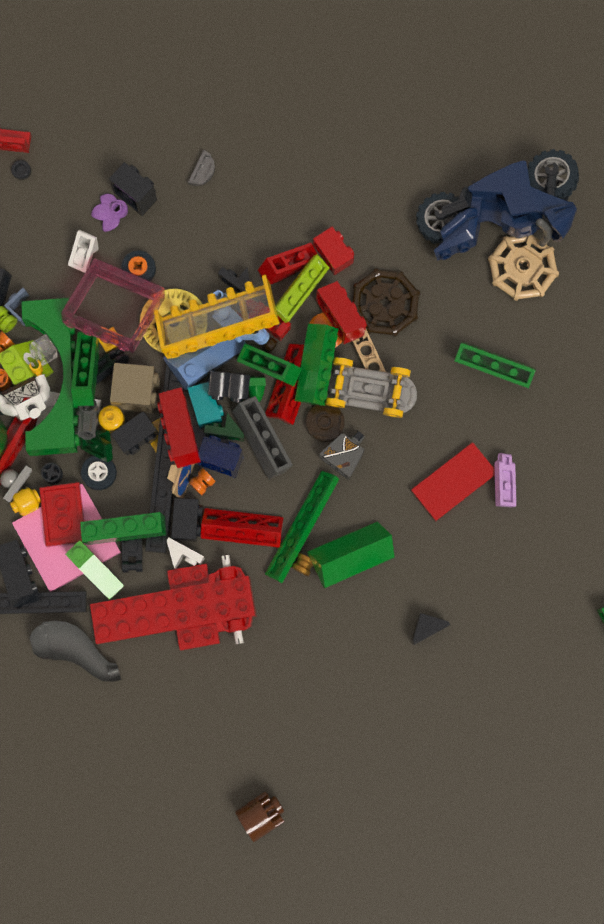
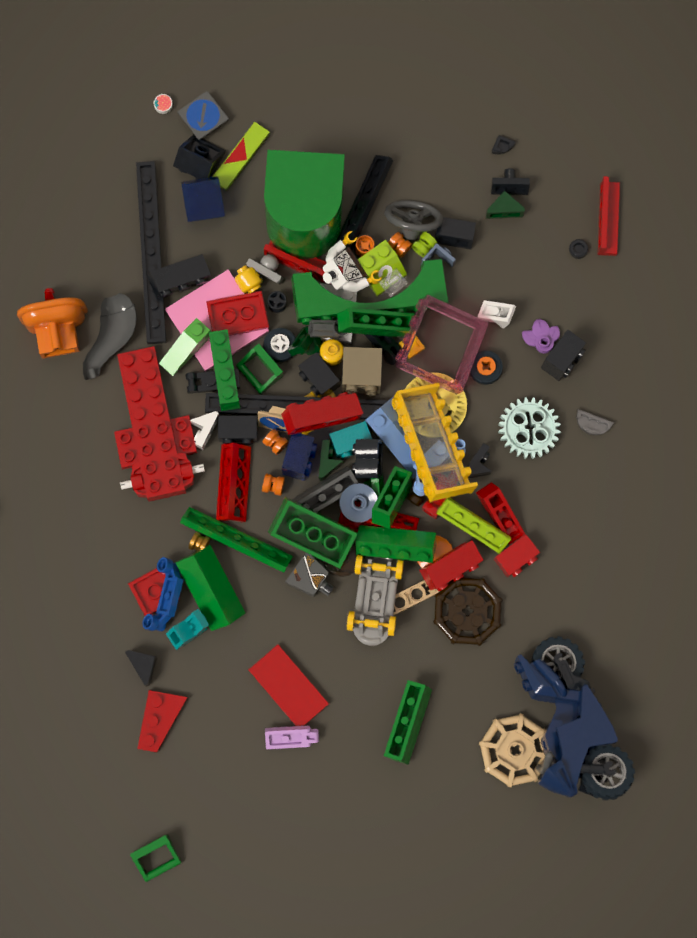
camera: 85 degrees right, 0 degrees up
(57, 710) = (54, 323): none -> orange piece
(115, 486) = (269, 364): none -> green tile
(204, 213) = (512, 429): none -> light aqua gear
(246, 486) = (278, 483): none -> orange wheel
(273, 389) = (365, 495): none -> sand blue dish
(302, 444) = (312, 532): none -> green brick
(351, 614) = (148, 590): none -> red tile
(358, 596) = (169, 596): none -> blue plate
(393, 579) = (188, 629): none -> teal brick
(481, 614) = (158, 718): none -> red wing

